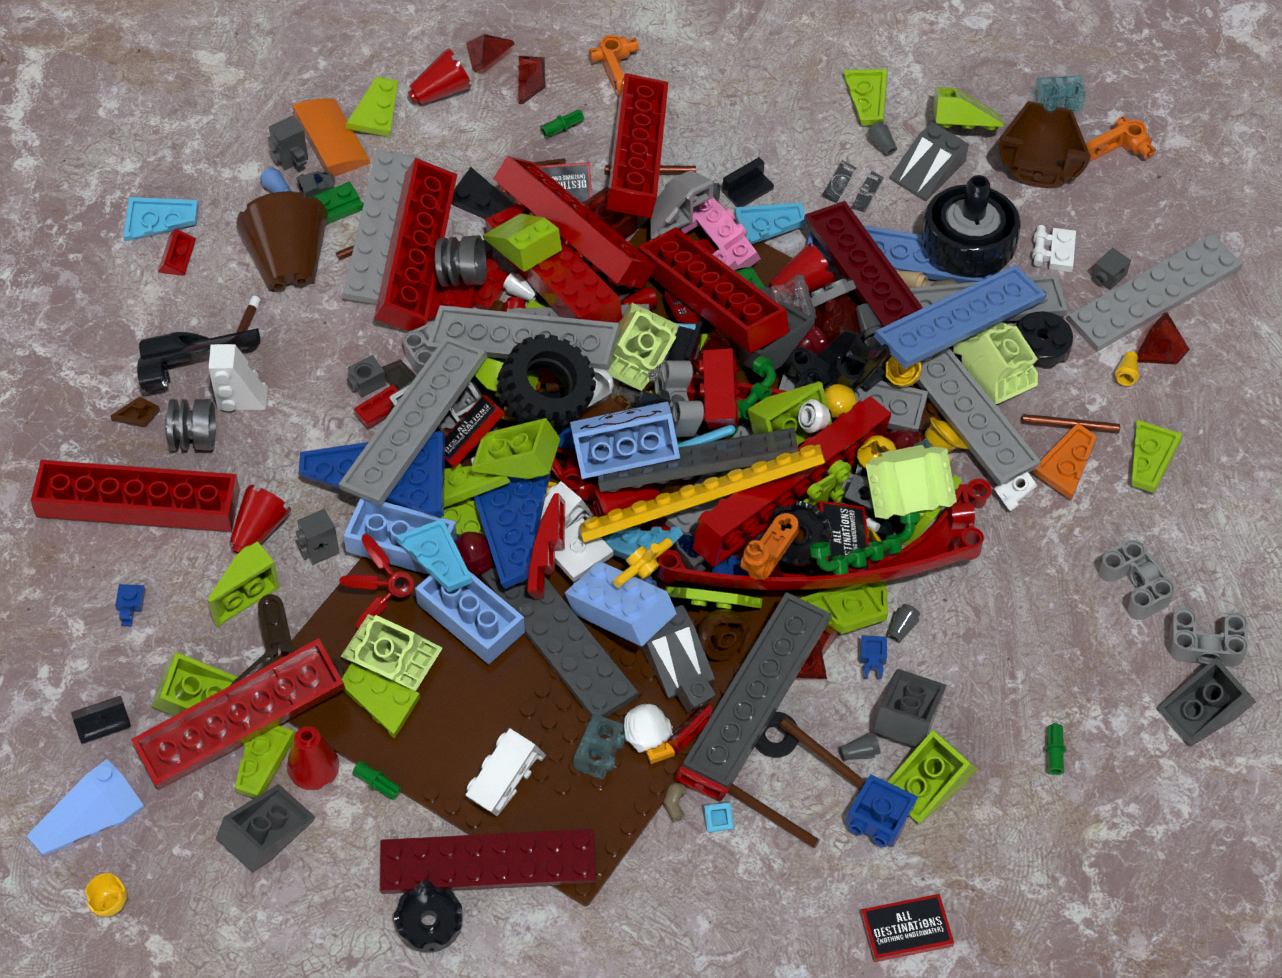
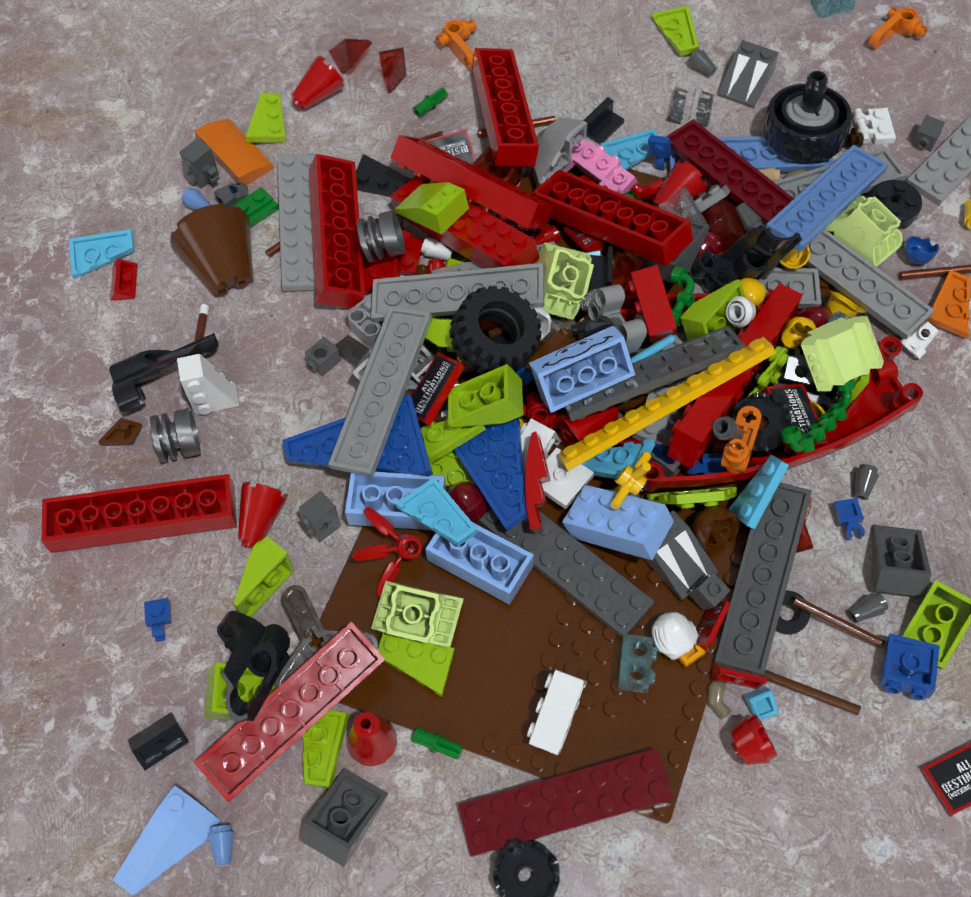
camera: 10 degrees left, 5 degrees up
(139, 825) = (221, 843): none -> medium blue cone
(222, 648) = (253, 647): none -> black panel
(376, 407) = (340, 382): red plate -> none
(693, 844) = (752, 741): none -> red cone
(752, 529) = (727, 429): none -> dark grey cone
(767, 271) = (646, 192): none -> red arm
(774, 604) = (758, 493): none -> medium azure wing
(799, 226) = (661, 148): none -> blue plate
(853, 605) = (821, 476): lime wing -> none
(959, 108) = (754, 25): lime slope -> none
(1024, 258) = (855, 138): none -> dark brown plate
(1044, 146) = (842, 43): reddish brown cone -> none
(1051, 394) = (919, 250): none -> blue hair

